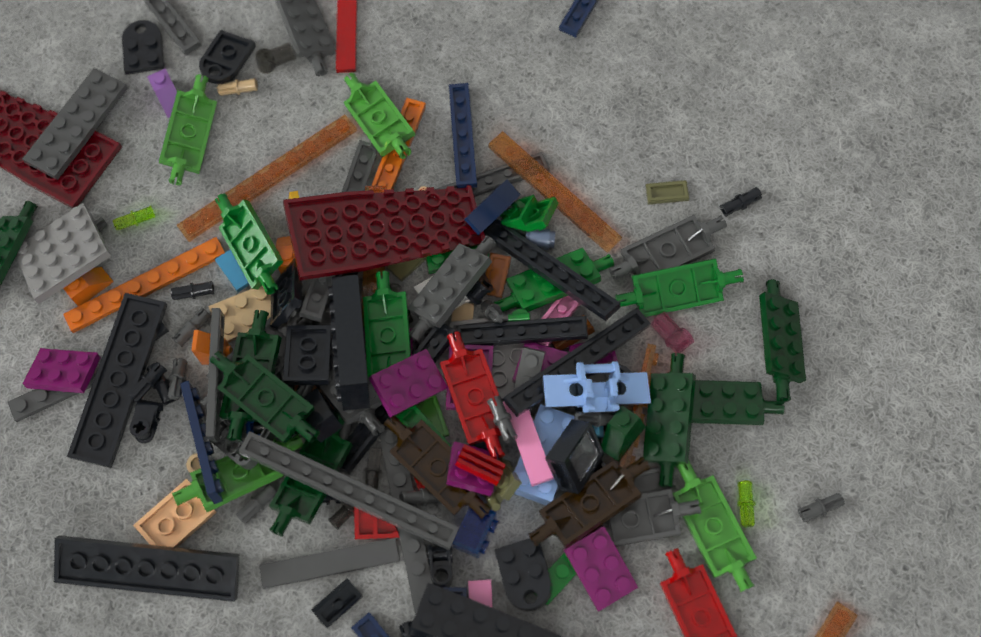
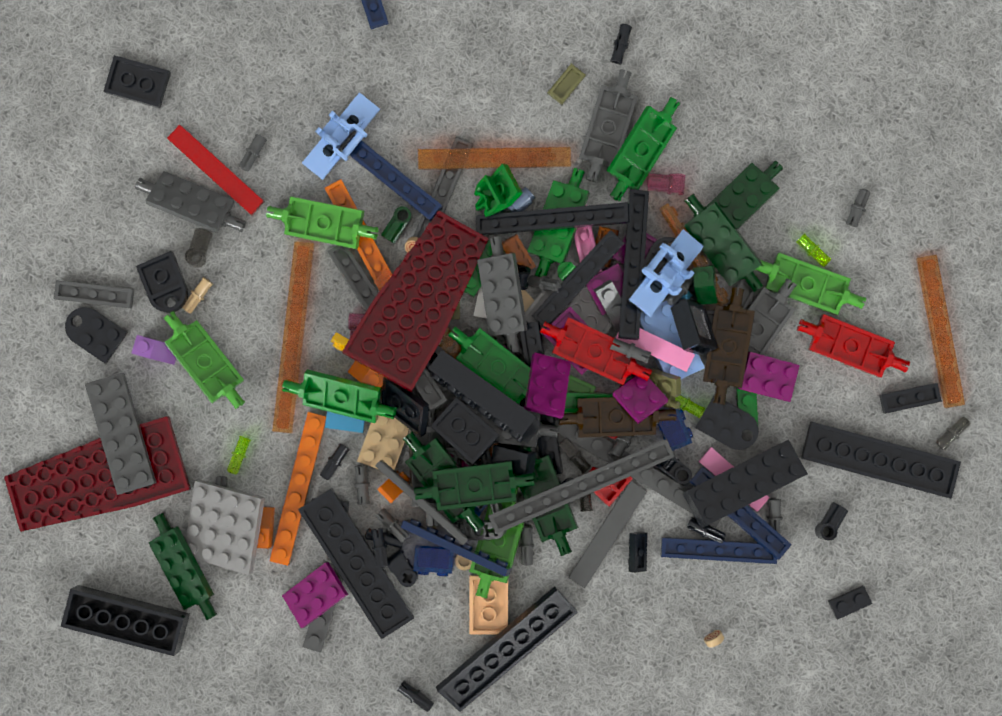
camera: 50 degrees left, 20 degrees up
(37, 532) = (415, 696): none -> black axle
(175, 436) = (433, 559): none -> clear blue brick
(383, 32) = (252, 152): none -> dark grey axle
(429, 170) = (395, 226): none -> dark green piece
(457, 75) = (337, 130): none -> light blue piece
(481, 462) = (660, 385): red tile -> none
(492, 207) = (469, 211): dark blue slope -> none
(507, 523) = (689, 406): none -> clear neon green axle
(781, 340) = (738, 119): dark green plate -> none

